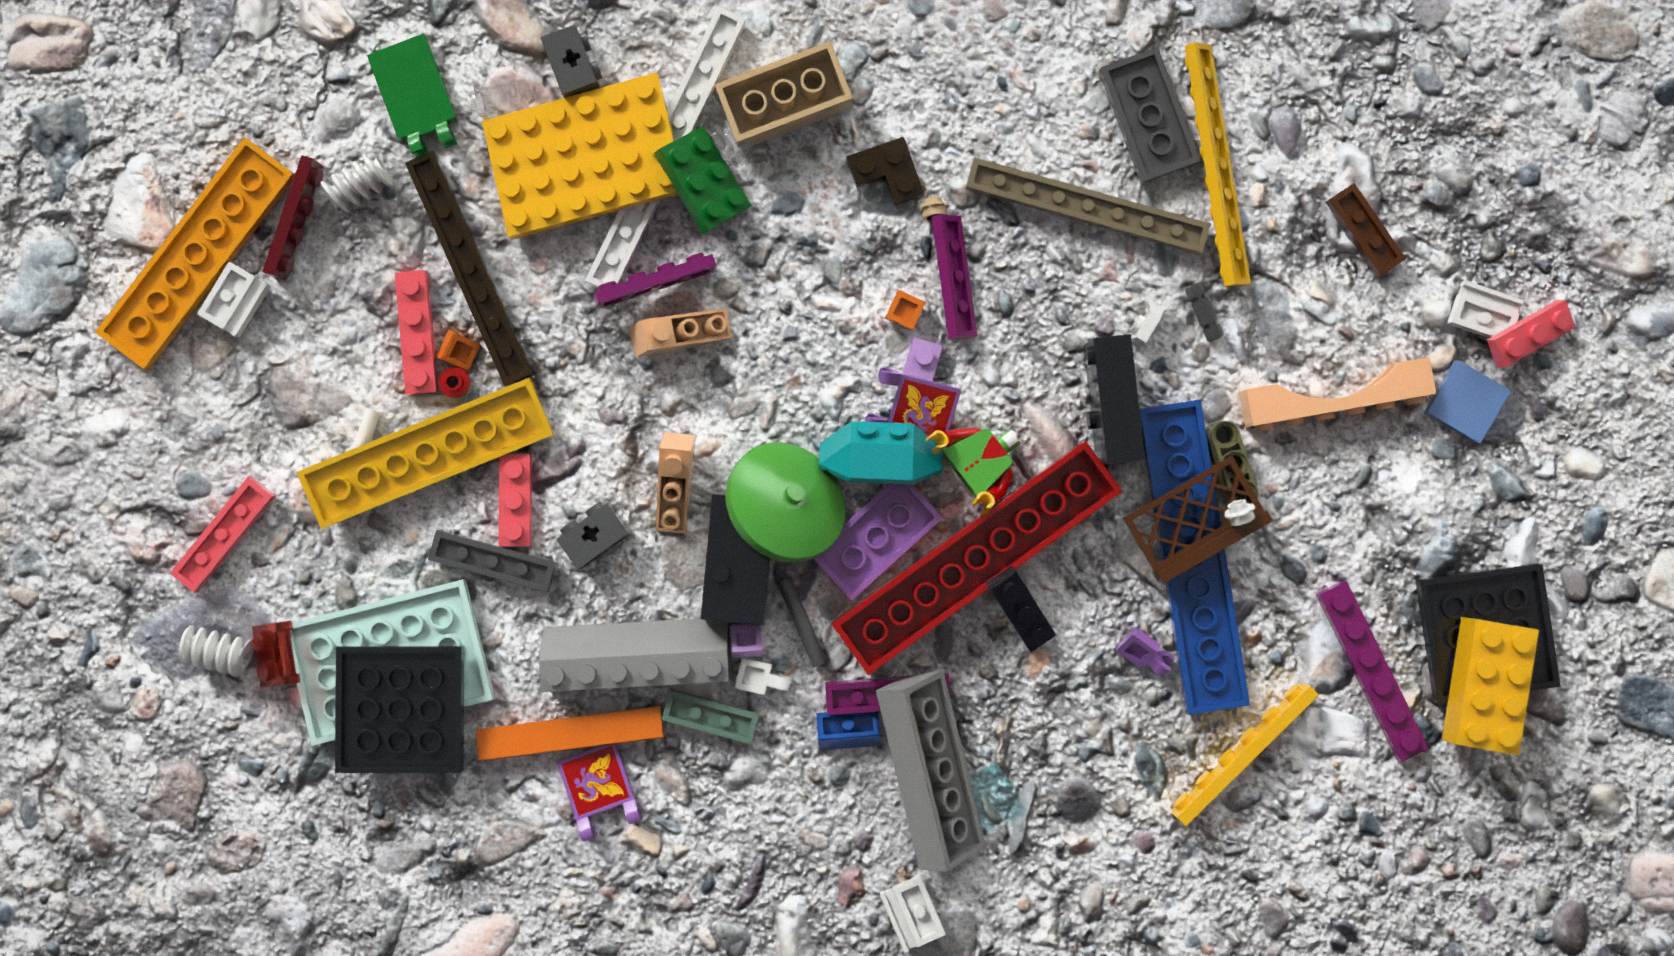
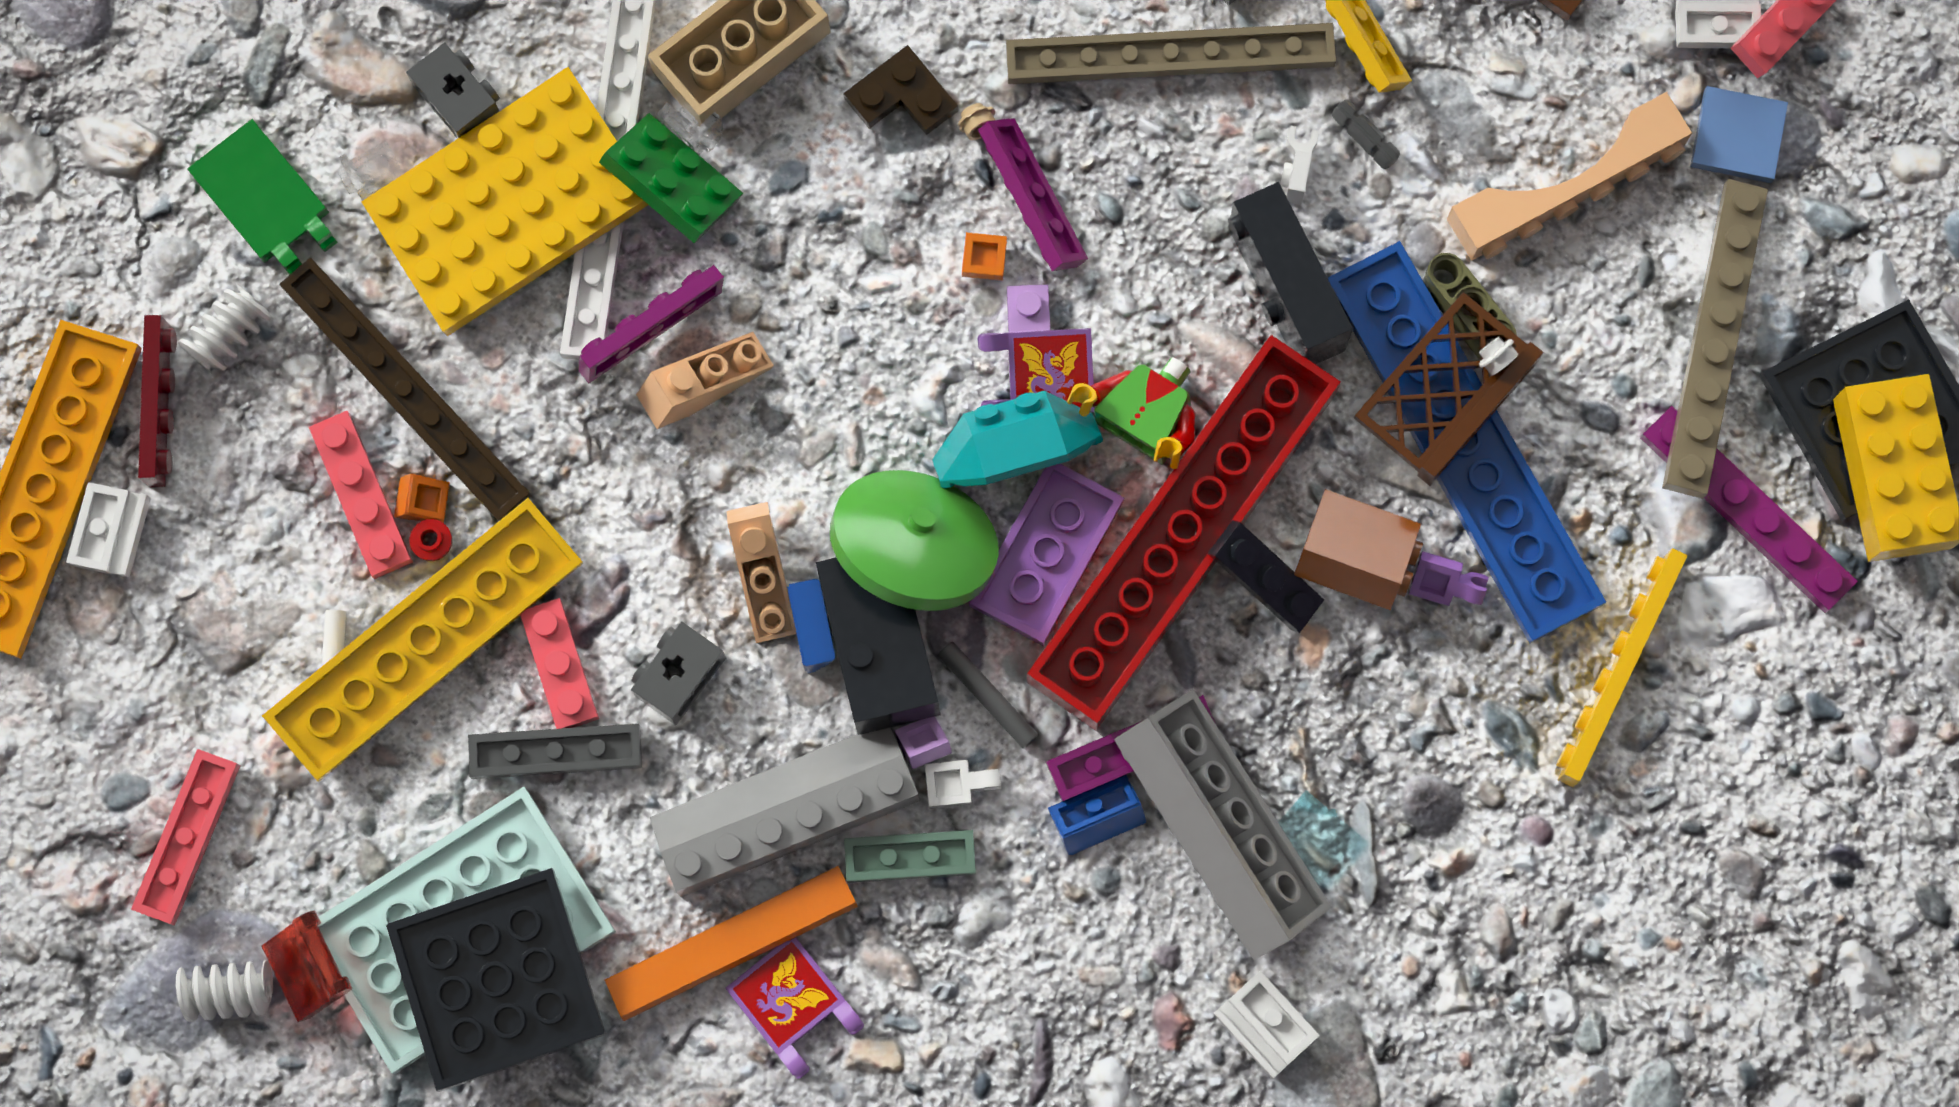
camera: 15 degrees left, 10 degrees down
(695, 534) = (811, 624): none -> blue slope
(1092, 612) = (1360, 550): none -> brick
(1395, 545) = (1715, 339): none -> dark tan plate

